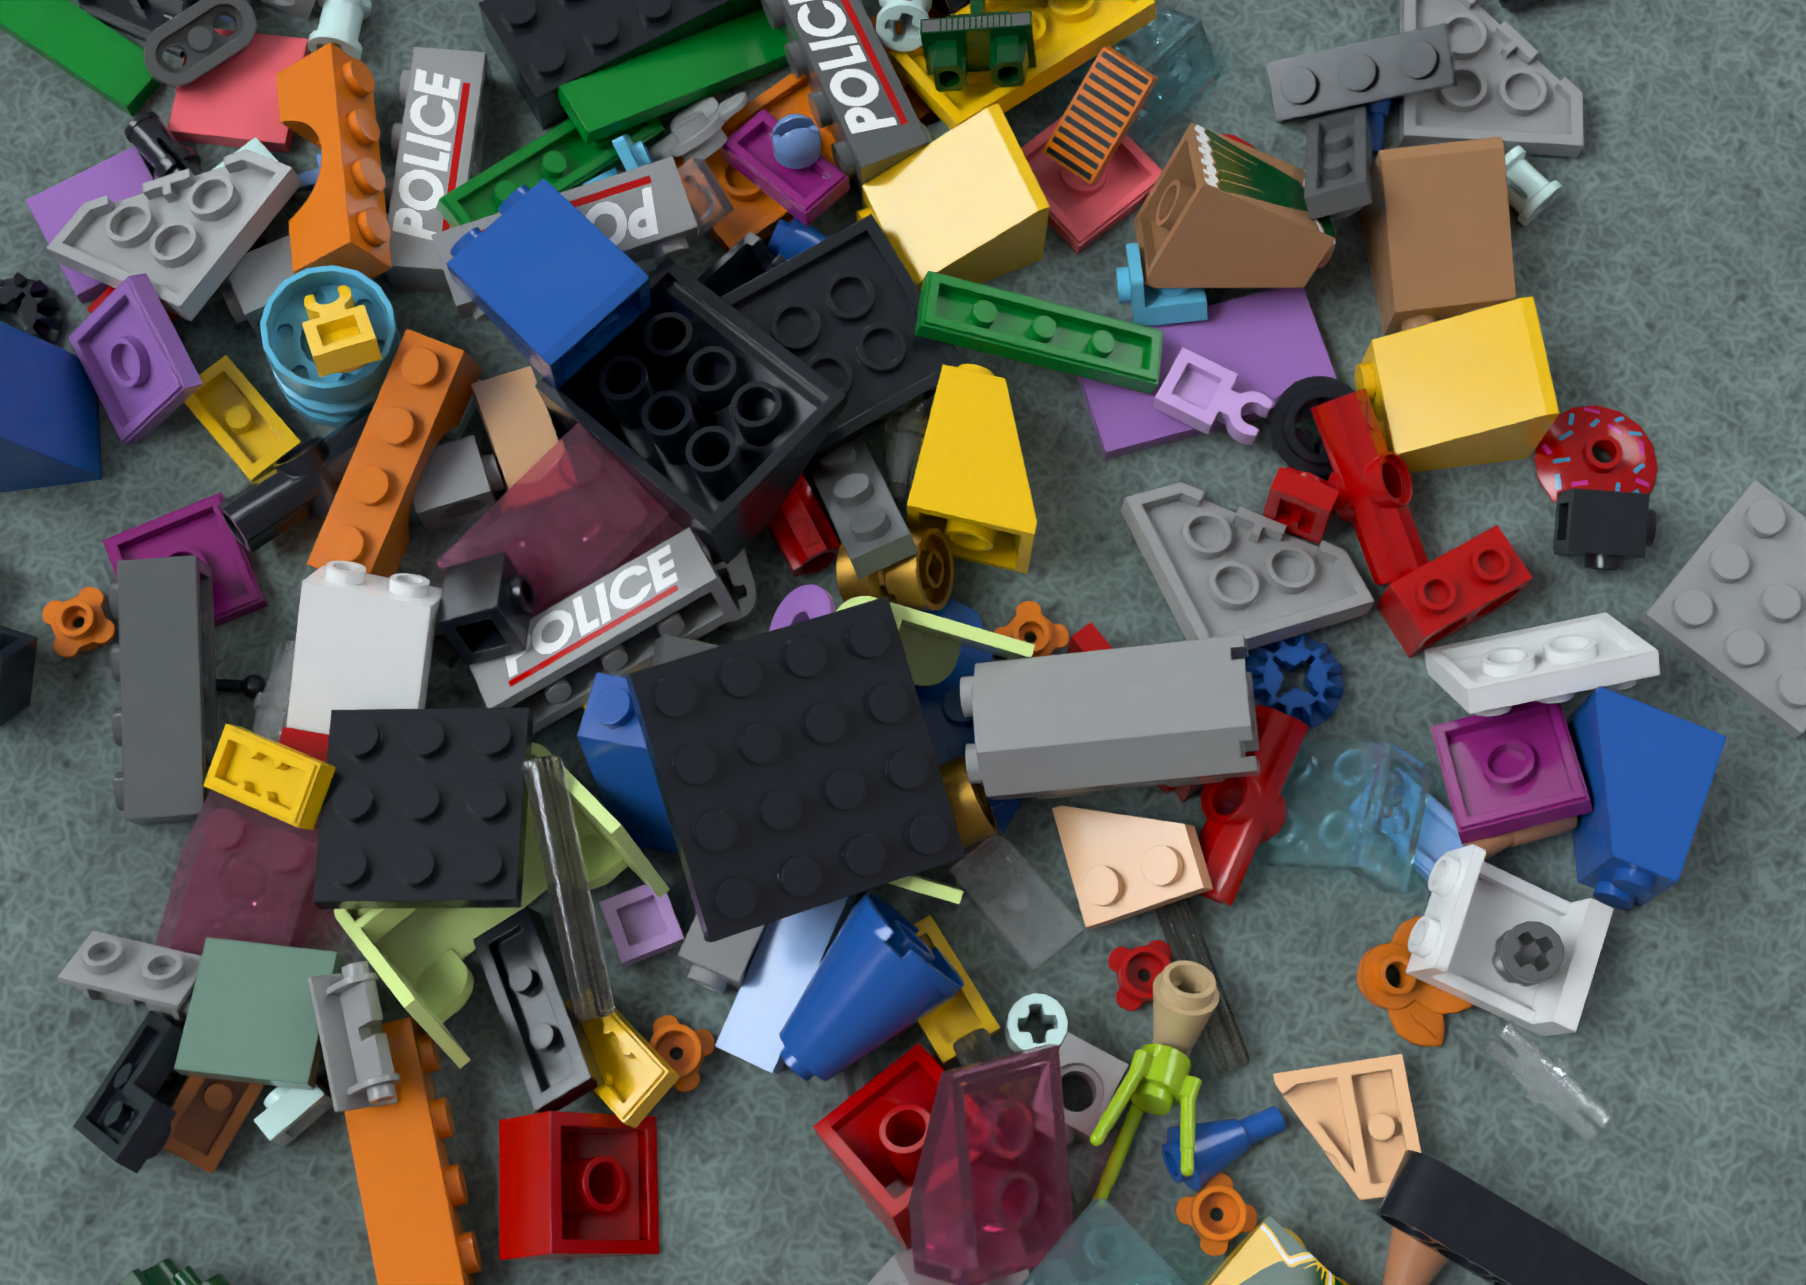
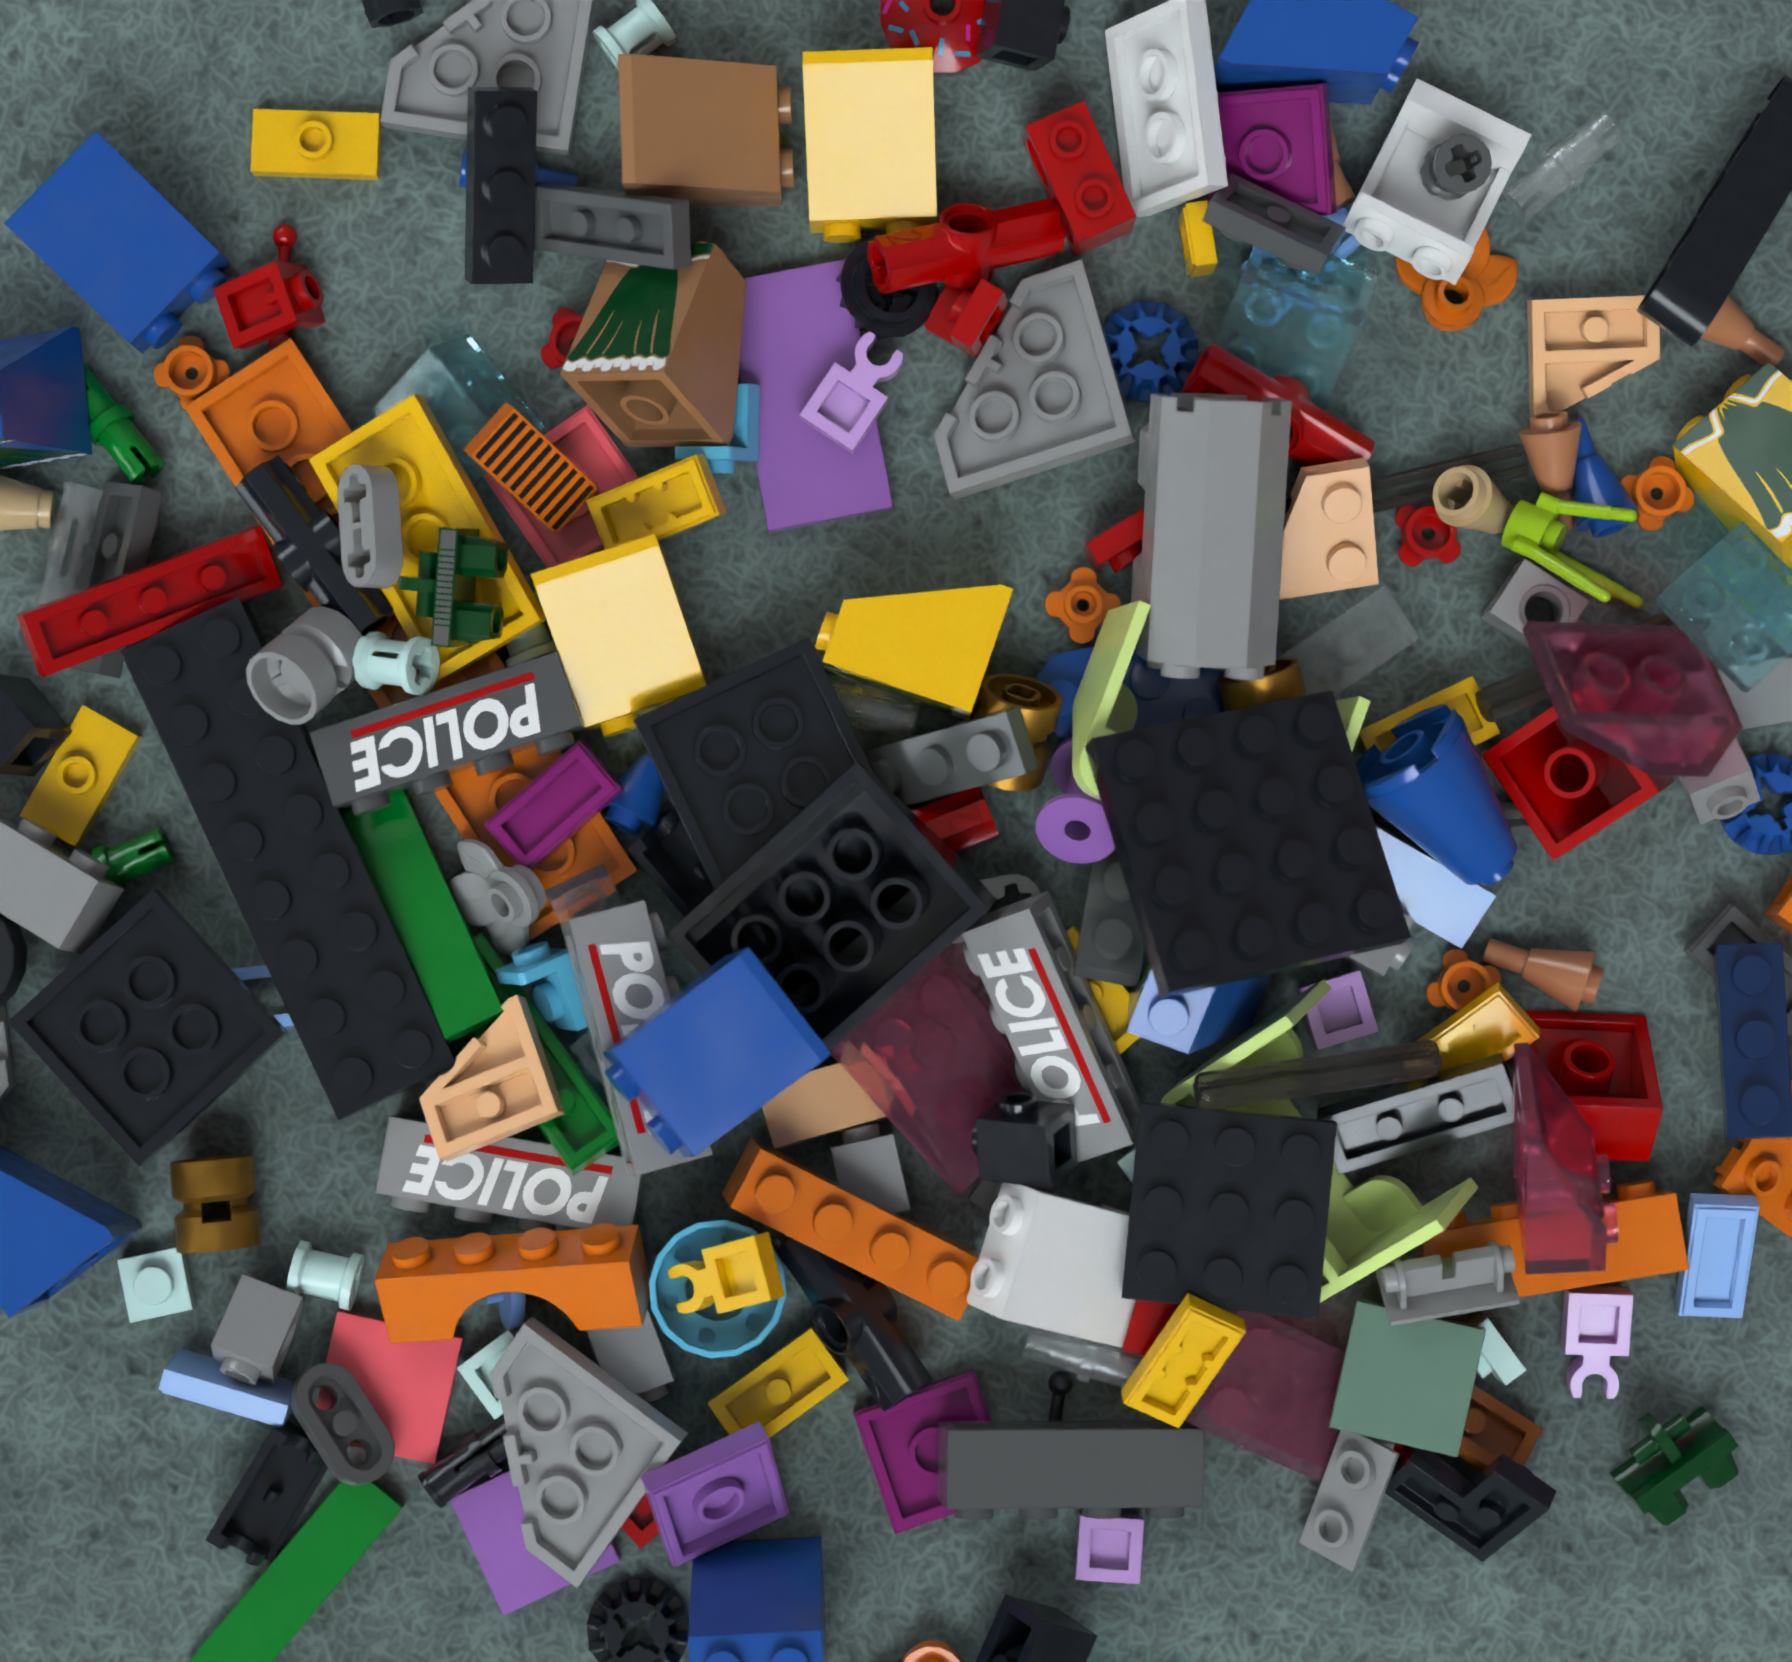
camera: 85 degrees left, 15 degrees up
(84, 744) = (1109, 1549): none -> lavender plate
(96, 629) = (987, 1540): orange plate -> none
(318, 1226) = (1594, 1328): none -> lavender plate
(476, 1131) = (1557, 1176): none -> clear pink slope
(515, 126) = (494, 1087): none -> light nougat wing
(695, 1153) = (1561, 974): none -> nougat cone
(796, 141) = (549, 790): medium blue hinge -> none
(1039, 332) = (772, 560): green tile -> none
(1049, 1013) = (1485, 626): light aqua bush -> none
(1083, 234) = (658, 503): none -> yellow plate
(1243, 1093) = (1552, 452): none -> nougat cone
(1412, 713) = (1197, 240): none -> yellow tile
(1438, 771) = (1274, 225): none -> dark grey plate

